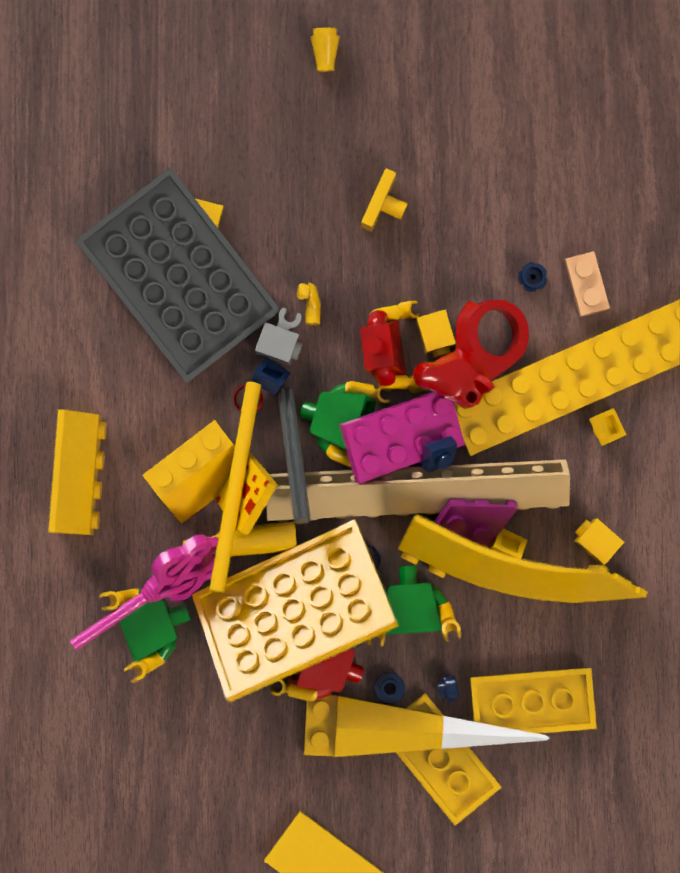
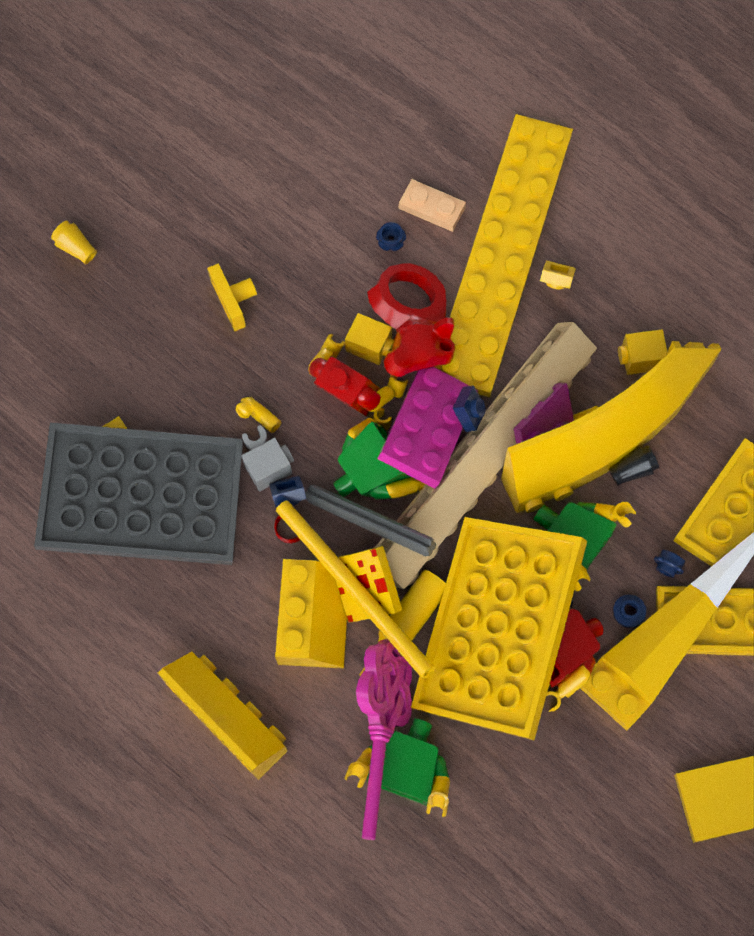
camera: 45 degrees left, 15 degrees down
(502, 605) = (636, 465): none -> black cone

